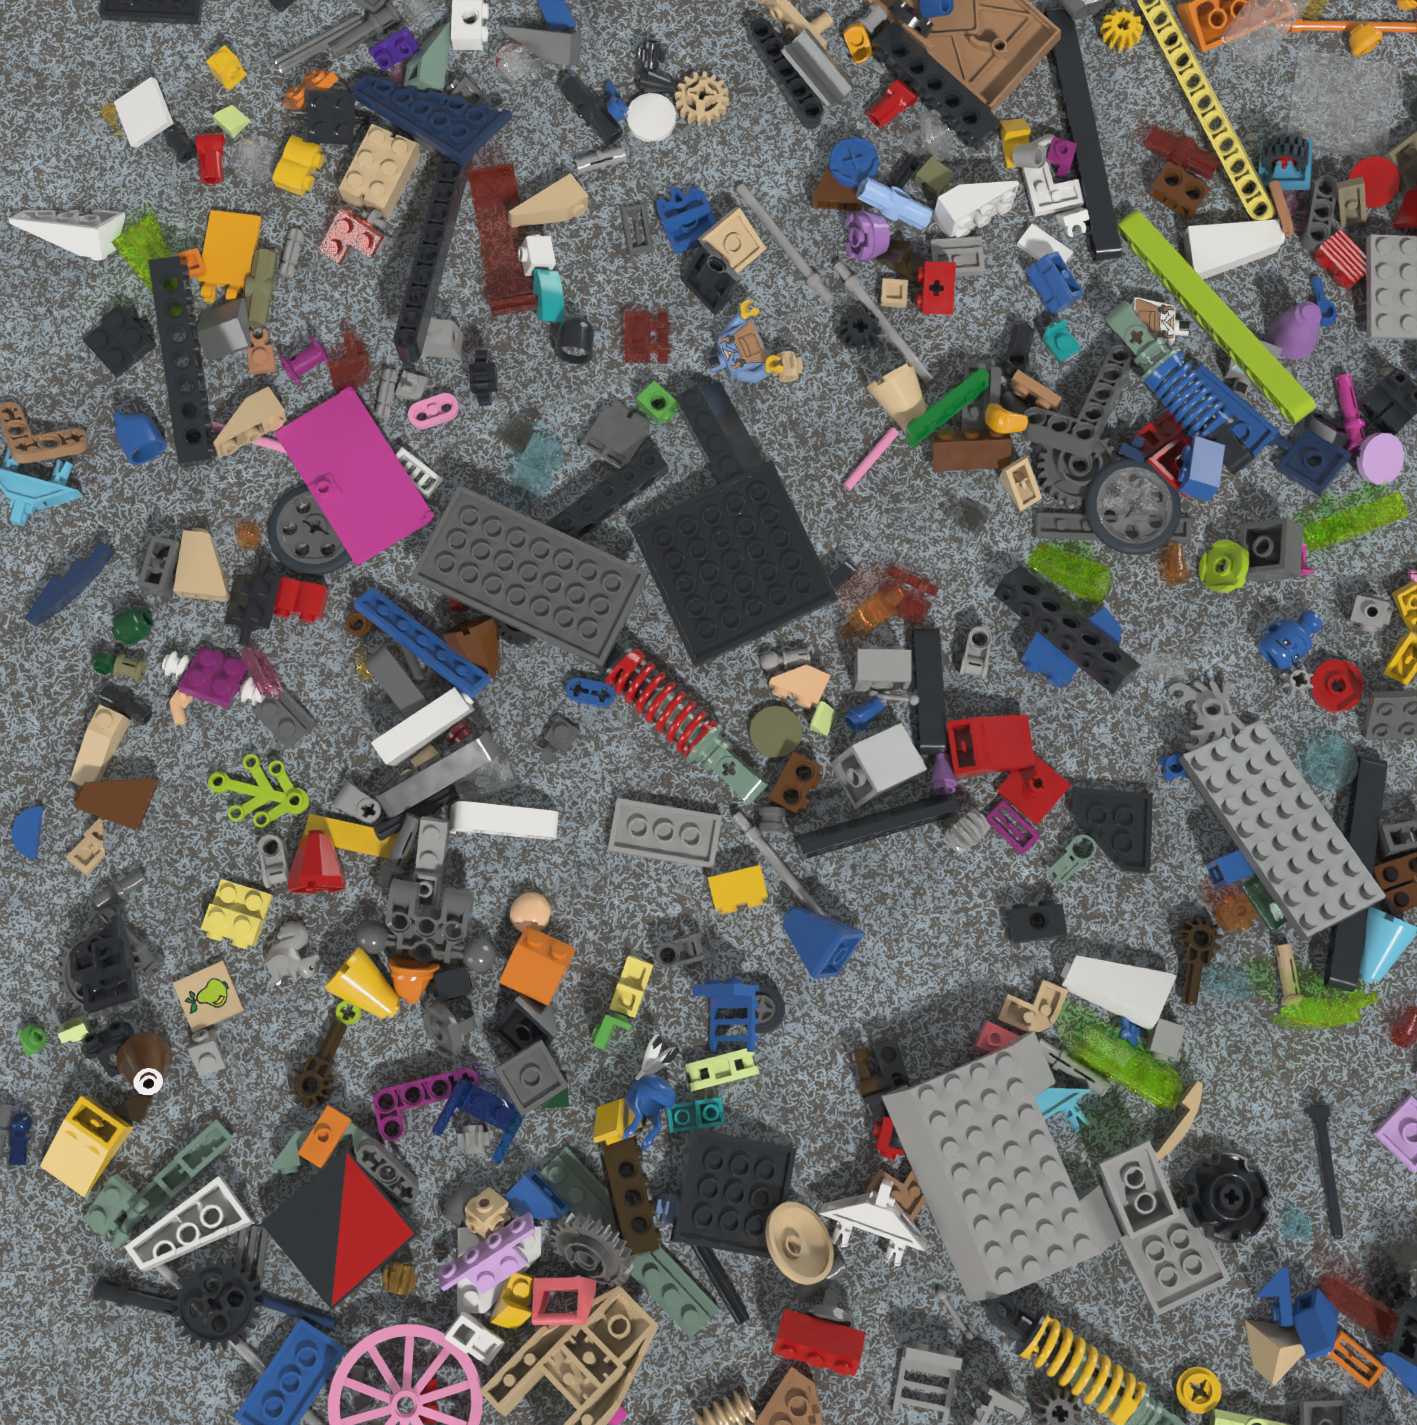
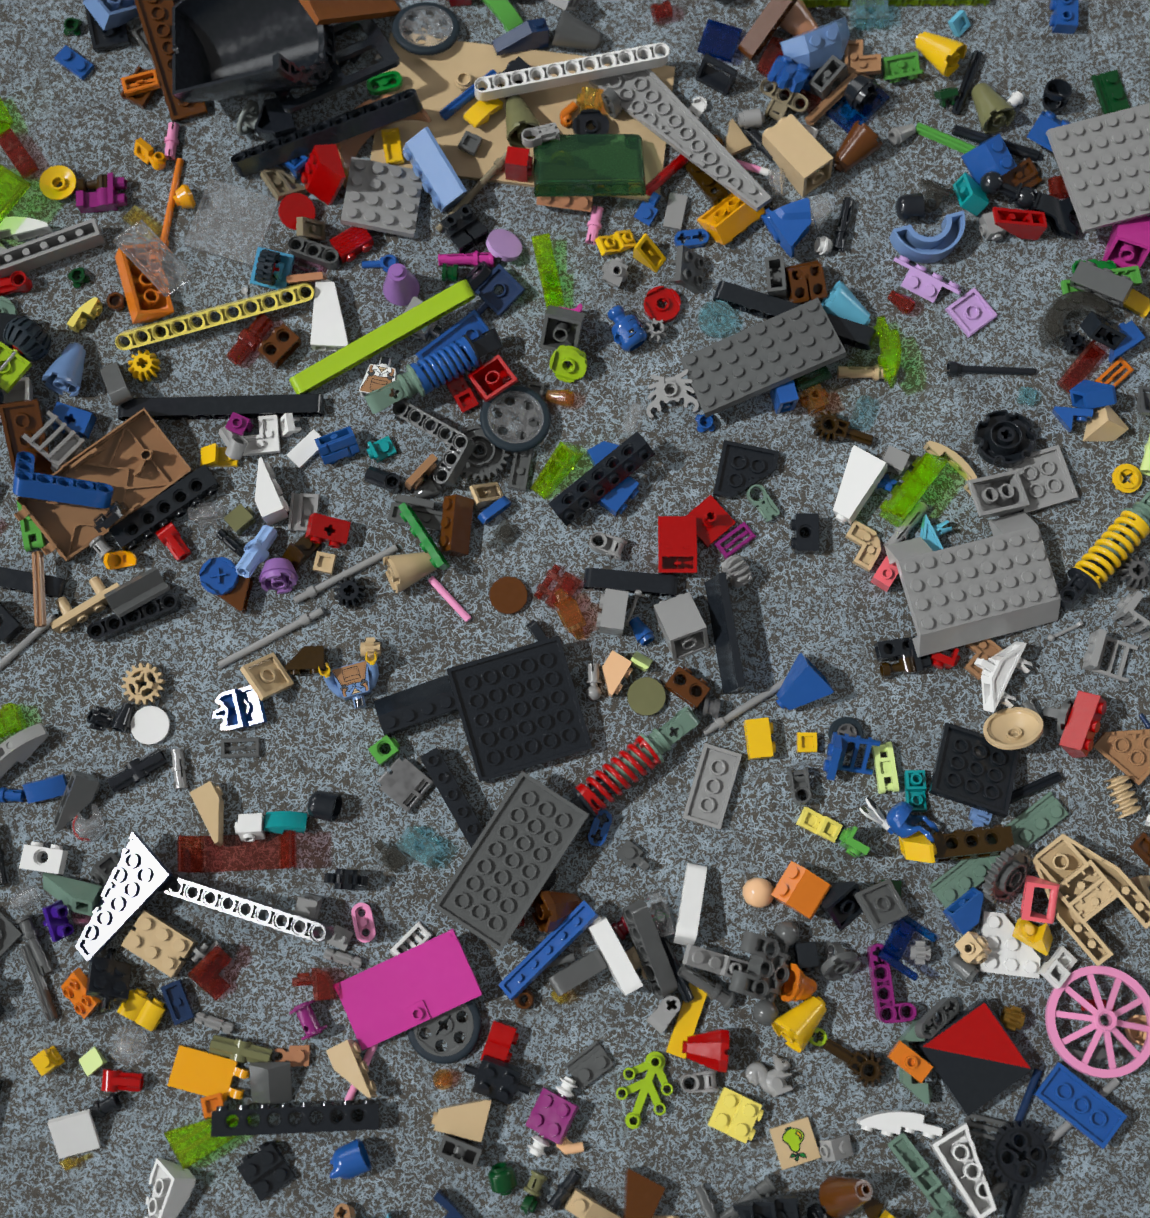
camera: 85 degrees left, 0 degrees up
(248, 1122) = (892, 1120): none -> white slope
(262, 673) = (555, 1077): clear pink tile -> none
(312, 205) = (177, 1002): none -> dark blue plate
(491, 1259) = (1006, 948): lavender bracket -> none
(615, 105) = (140, 749): blue plate -> none
(638, 337) = (328, 757): clear red plate -> none
(711, 278) = (293, 695): black plate -> none
(742, 956) = (806, 742): none -> yellow plate
(761, 290) = (307, 661): none -> dark brown slope
(886, 533) = (508, 595): none -> reddish brown tile
(943, 775) = (693, 581): medium lavender cone -> none
(1000, 498) = (494, 510): none -> blue beam
(1004, 420) = (441, 498): light orange hair -> none
(1132, 450) = (473, 411): dark blue tile -> none
(1201, 468) = (500, 365): brick -> none
(1326, 393) = (450, 272): none -> dark green wheel

